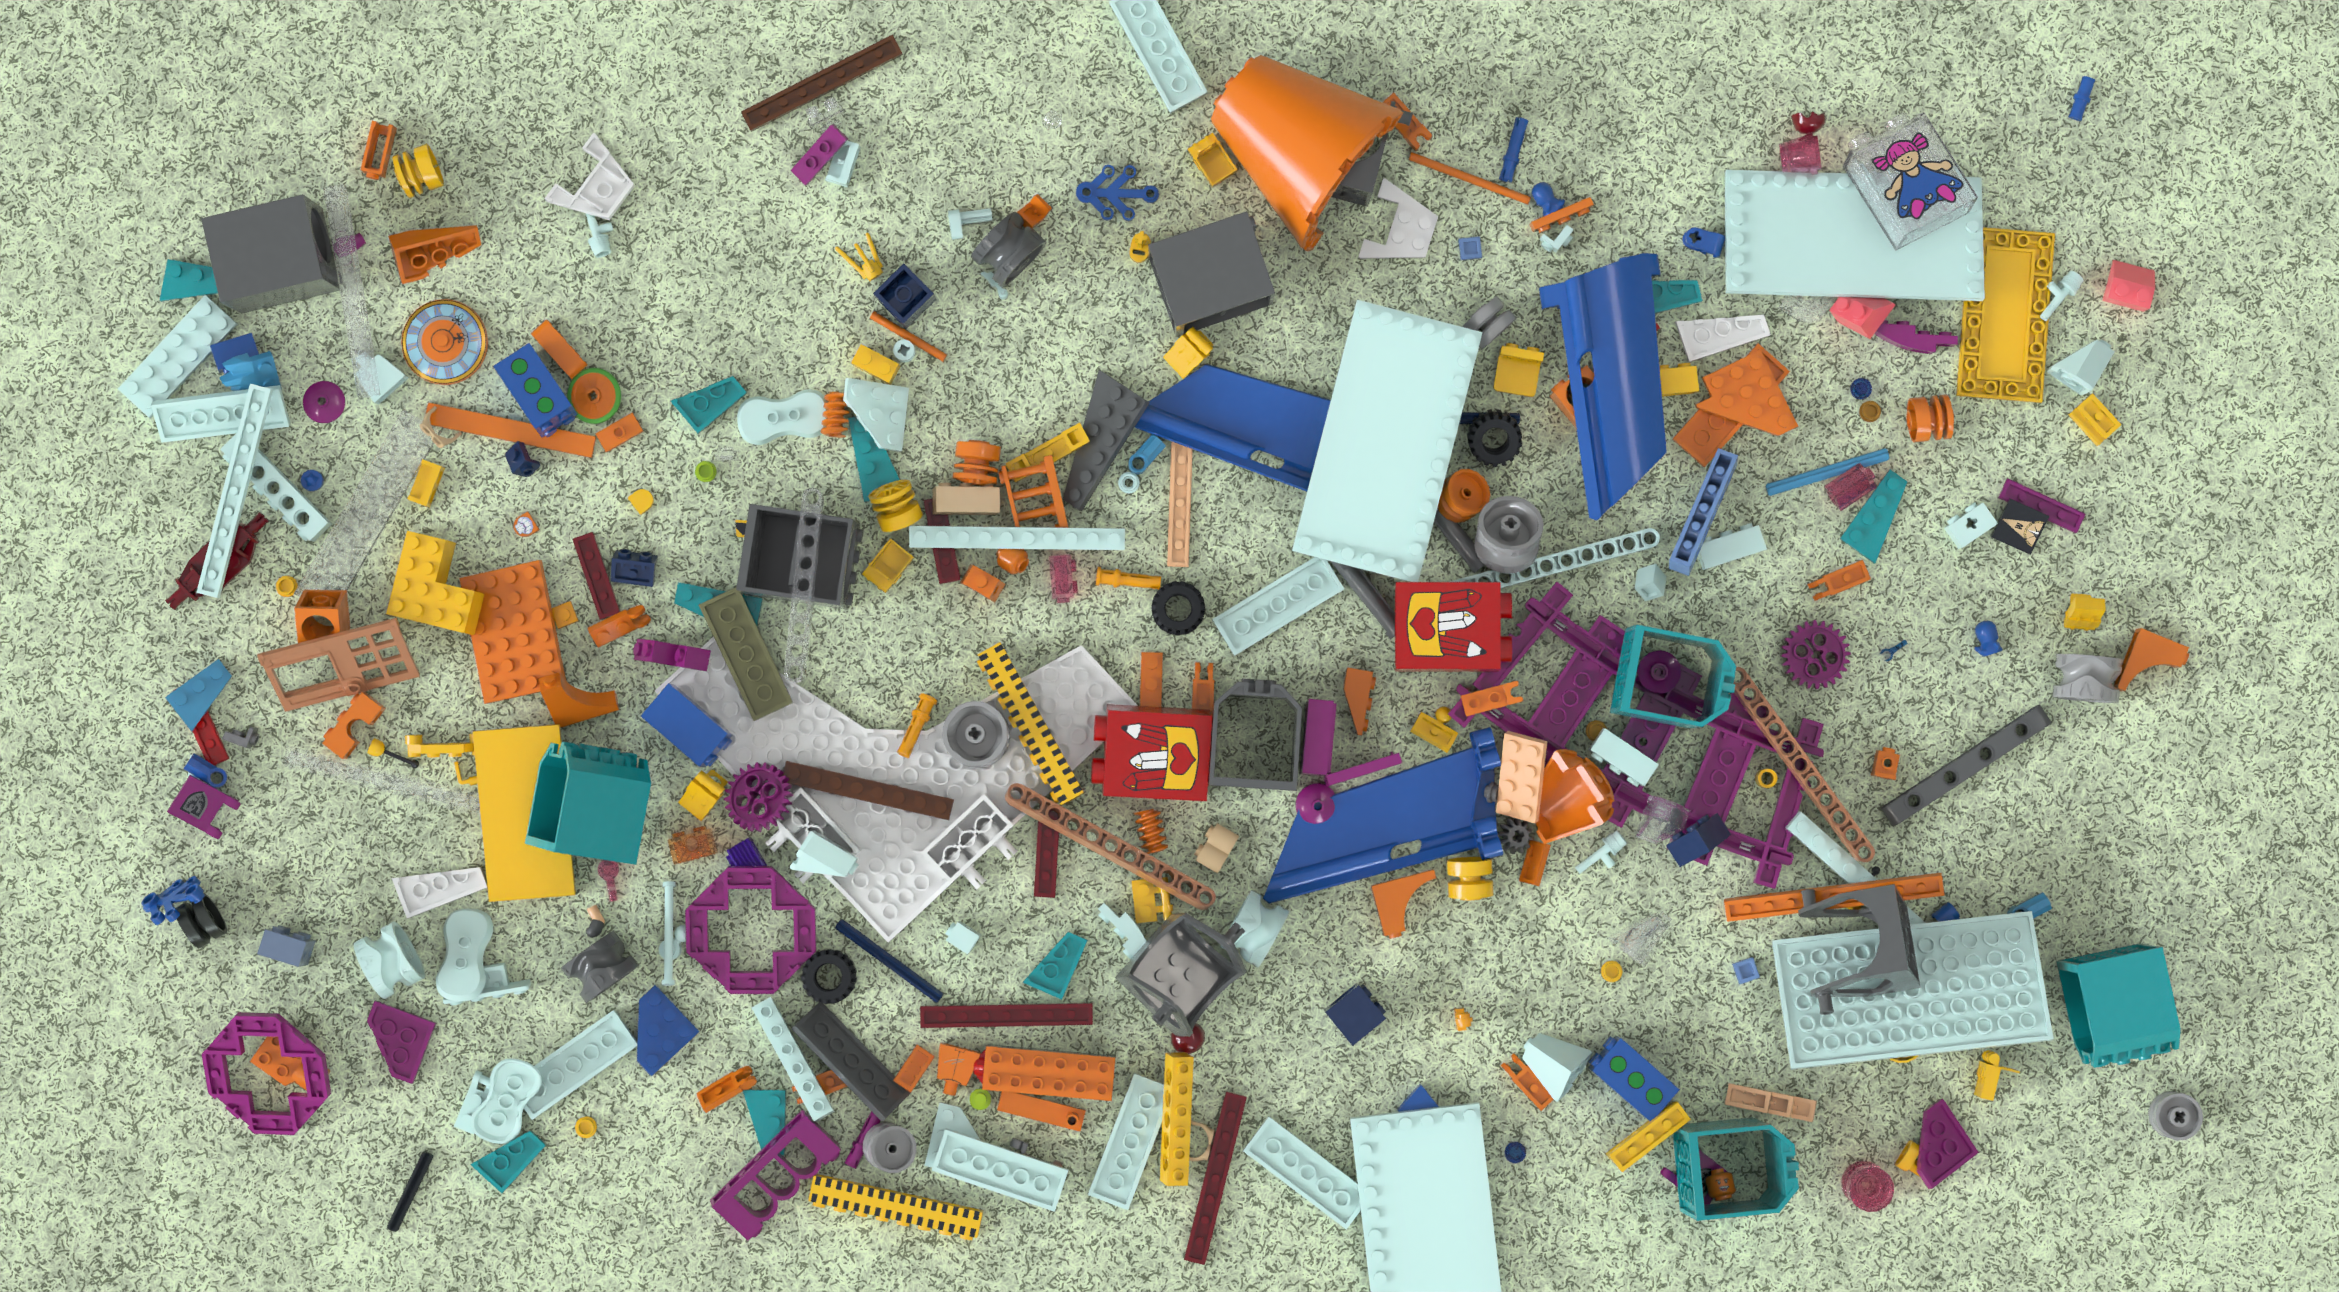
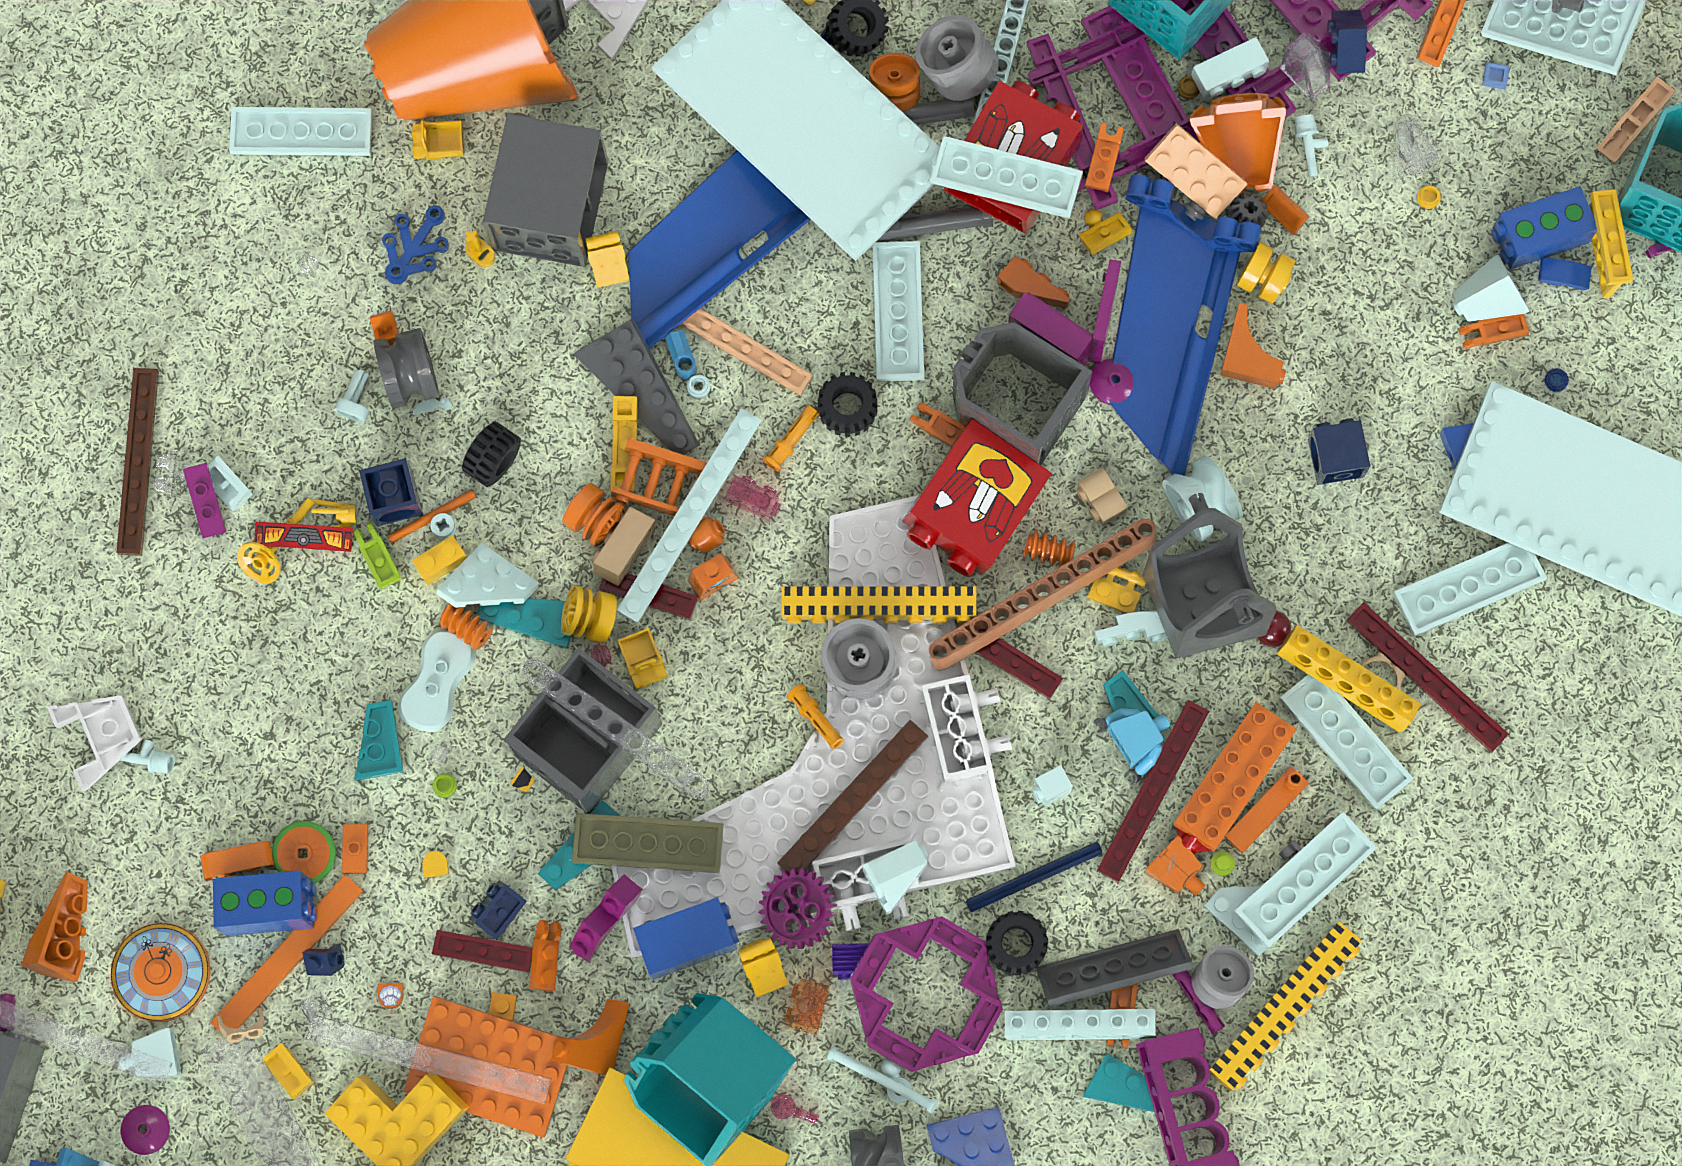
camera: 55 degrees left, 10 degrees down
(482, 475) = (315, 1005): none -> clear plate
(490, 584) = (428, 1059): none -> clear plate
(597, 923) = (830, 1148): arm -> none
(726, 1088) = (1071, 1111): orange hinge -> none
(802, 227) = (267, 554): none -> yellow dish
(834, 248) = (303, 536): none -> tile
(851, 314) = (378, 558): none -> lime hinge
(872, 532) = (601, 654): none -> clear pink plate
(913, 1068) = (1155, 912): orange plate -> none
(978, 355) = (491, 454): none -> black tyre
(1037, 980) = (1136, 737): none -> medium azure torso
(1151, 679) = (900, 469): orange plate -> none
(1421, 633) = (1006, 177): none -> light aqua plate
(1462, 1019) = (1399, 356): light orange plate -> none
(1607, 1113) = (1564, 272): none -> blue slope

